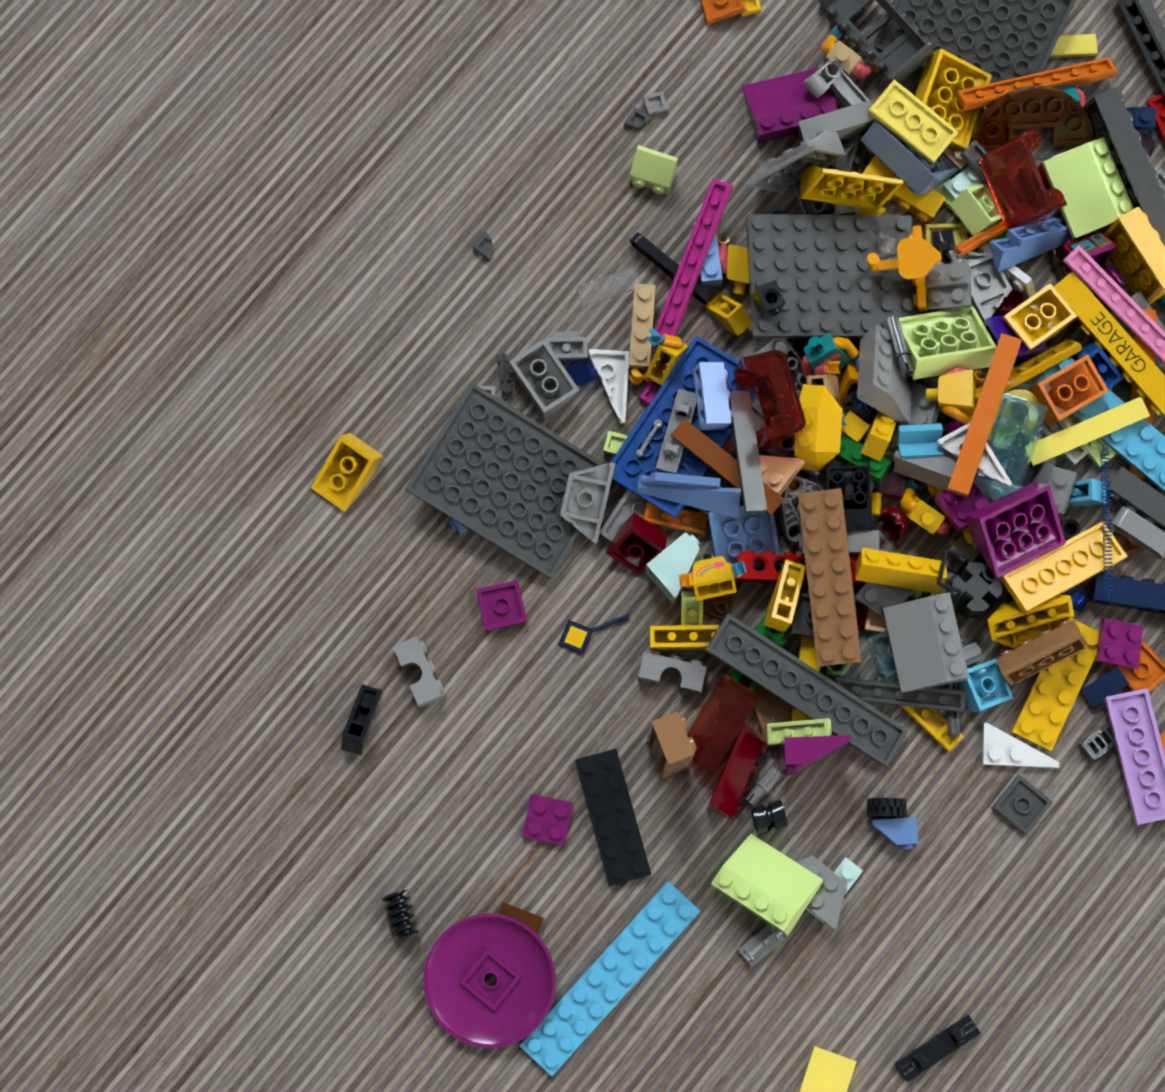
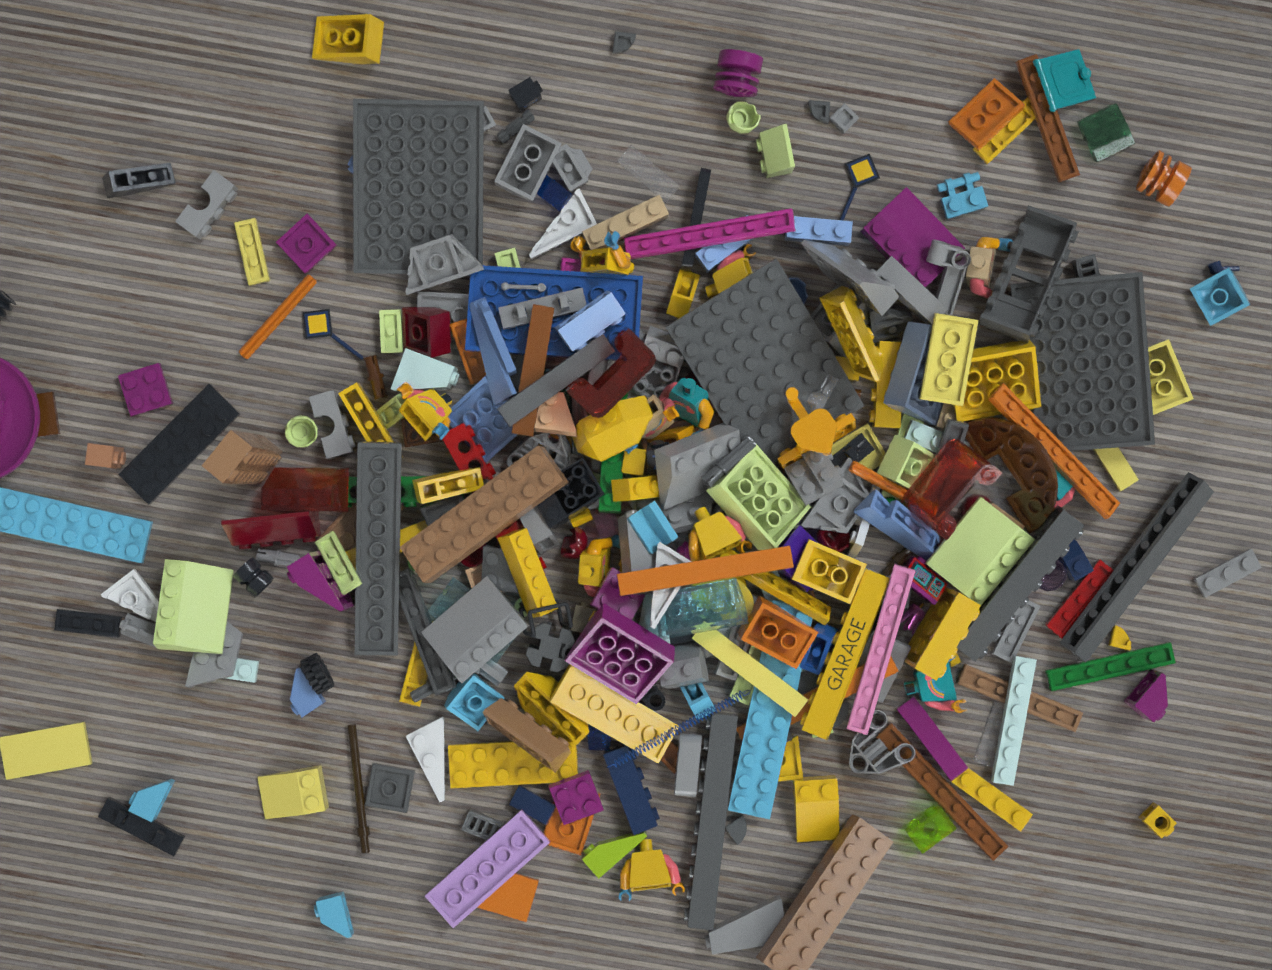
camera: 60 degrees right, 10 degrees up
(480, 657) = (252, 251): none -> light yellow tile
(482, 349) = (526, 93): none -> black brick
(550, 667) = (277, 316): none -> orange axle
(568, 164) = (737, 77): none -> magenta wheel
(589, 884) = (105, 456): none -> nougat brick
(607, 182) = (742, 117): none -> yellowish green hair
(619, 576) = (391, 331): none -> yellowish green plate
(651, 612) = (375, 377): none -> reddish brown pin
(663, 700) = (301, 431): none -> yellowish green hair
(709, 115) = (861, 172): none -> piece
(726, 932) = (134, 594): none -> white wing
(727, 991) = (87, 623): none -> black tile
(742, 169) = (821, 231): none -> light blue brick
(769, 290) = (713, 319): black brick -> none
(782, 45) = (964, 202): none -> medium azure plate
(918, 1024) = (150, 800): none -> medium azure slope
(981, 892) = (293, 792): none -> light yellow slope
(1047, 849) = (362, 829): none -> dark brown bar
(1109, 916) = (335, 913): none -> medium azure slope

